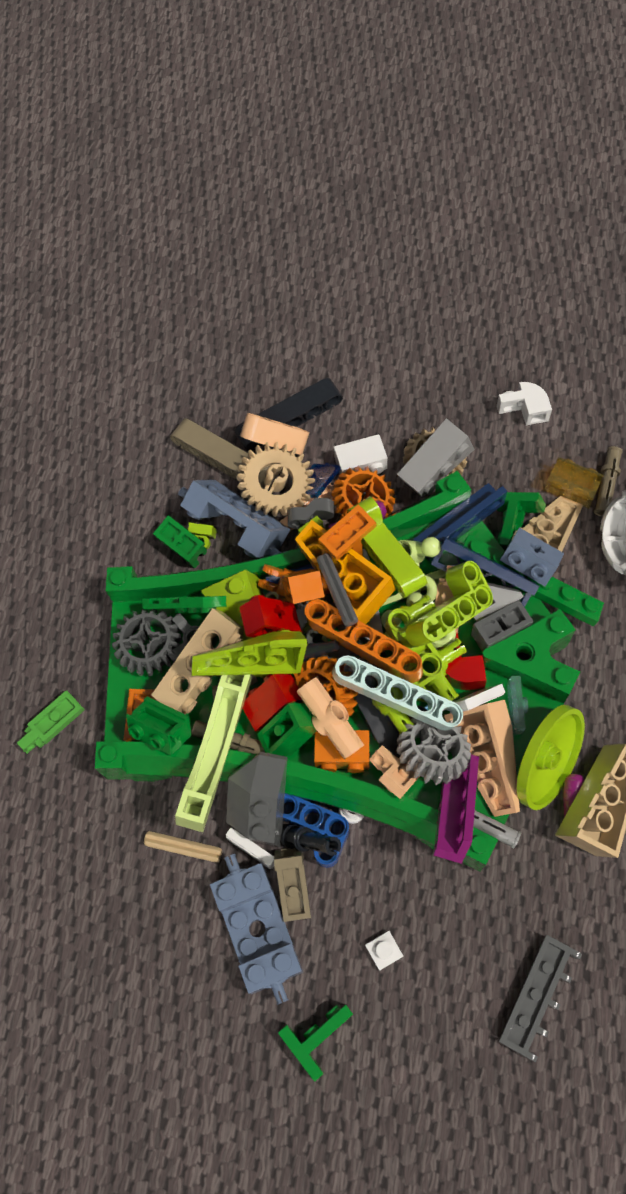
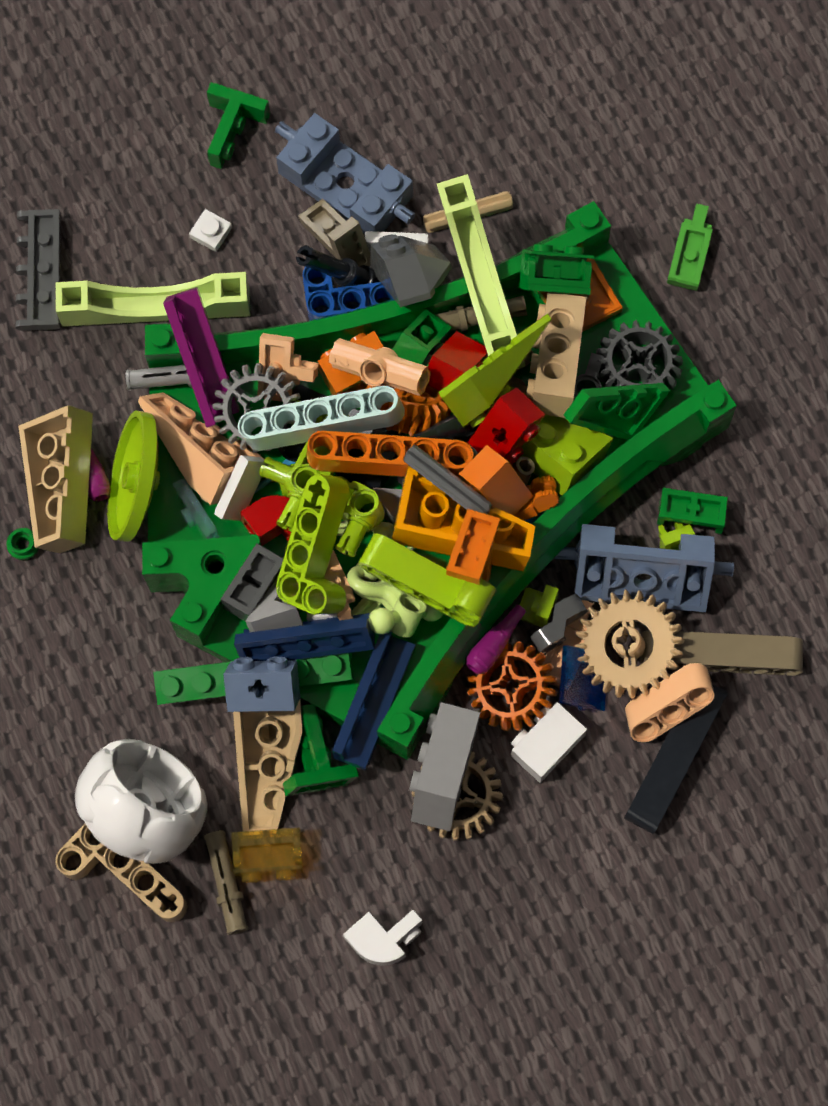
camera: 145 degrees right, 5 degrees up
(480, 919) = (107, 304): none -> yellowish green arch

